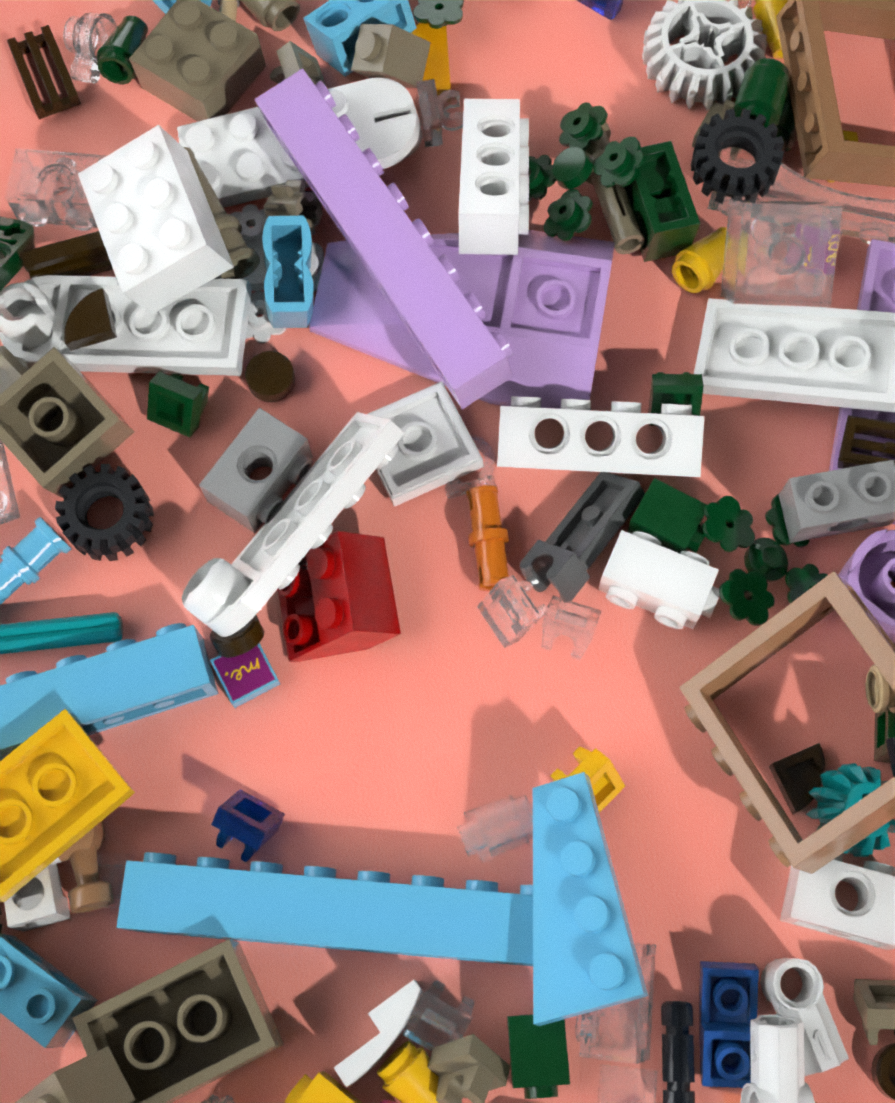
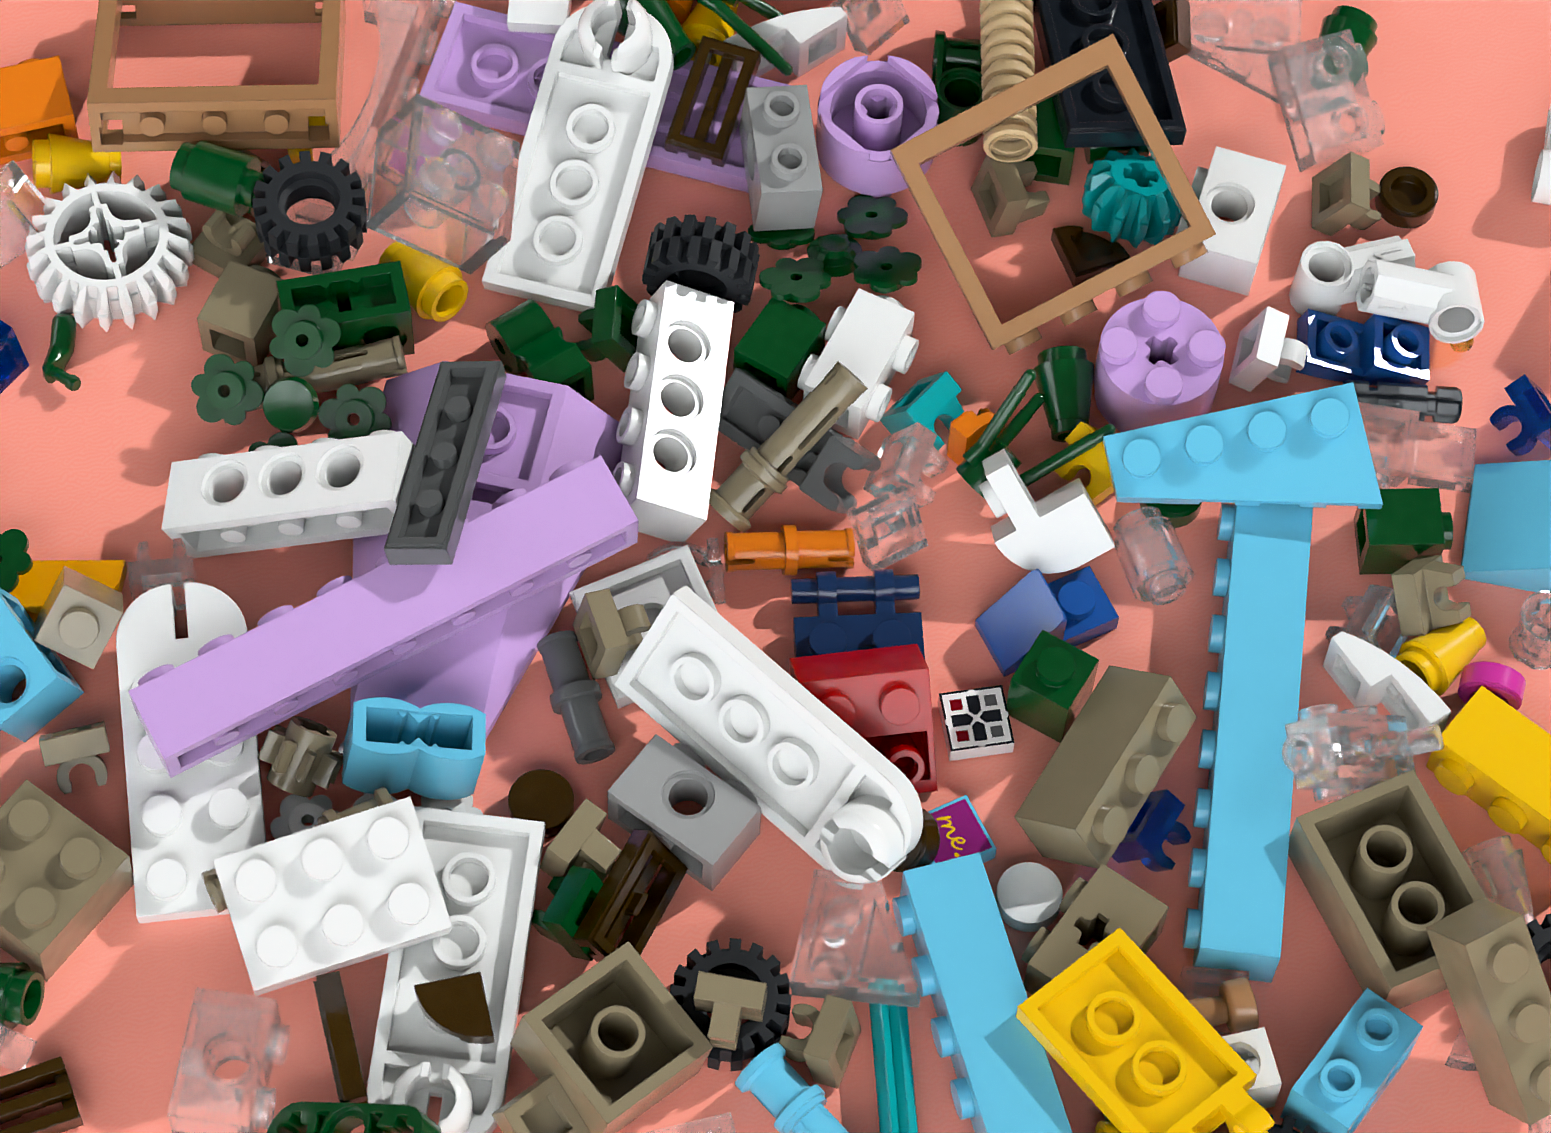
camera: 95 degrees left, 10 degrees down
(72, 583) = (830, 1041): none -> dark tan tile
(75, 496) = (729, 1002): none -> dark tan tile
(139, 595) = (851, 946): none -> clear wing
(174, 793) = (1095, 912): none -> dark tan brick
(183, 430) = (625, 896): none -> dark brown tile
(196, 732) = (1028, 896): none -> white tile
(227, 401) = (581, 845): none -> dark tan tile
(293, 786) = (1106, 767): none -> dark tan brick
(303, 994) = (1352, 749): none -> clear brick
(346, 688) = (975, 722): none -> tile
(353, 391) = (575, 697): none -> dark grey pin
(369, 742) = (1051, 686): none -> dark green brick
(394, 398) = (608, 632): none -> dark tan tile
(414, 595) = (845, 633): none -> dark blue plate
(442, 745) = (1068, 608): none -> blue slope
(502, 253) = (445, 463): none -> dark grey tile
(510, 733) = (1043, 534): none -> white brick
(550, 510) = (767, 467): none -> dark tan pin
(576, 694) = (988, 443): none -> dark green plant
(601, 674) = (966, 431): none -> orange tile
(618, 35) = (60, 352): none -> dark green piece
(626, 634) = (924, 403): none -> teal tile
(627, 347) = (532, 345): none -> dark green leg
(654, 754) = (1066, 382): none -> dark green cone
(659, 125) = (240, 313): none -> dark tan brick
(711, 928) = (1266, 352): none -> white tile
(712, 829) = (1157, 363): none -> lavender brick
(733, 450) = (702, 258): none -> black tyre
(839, 700) = (1003, 195): none -> dark tan tile

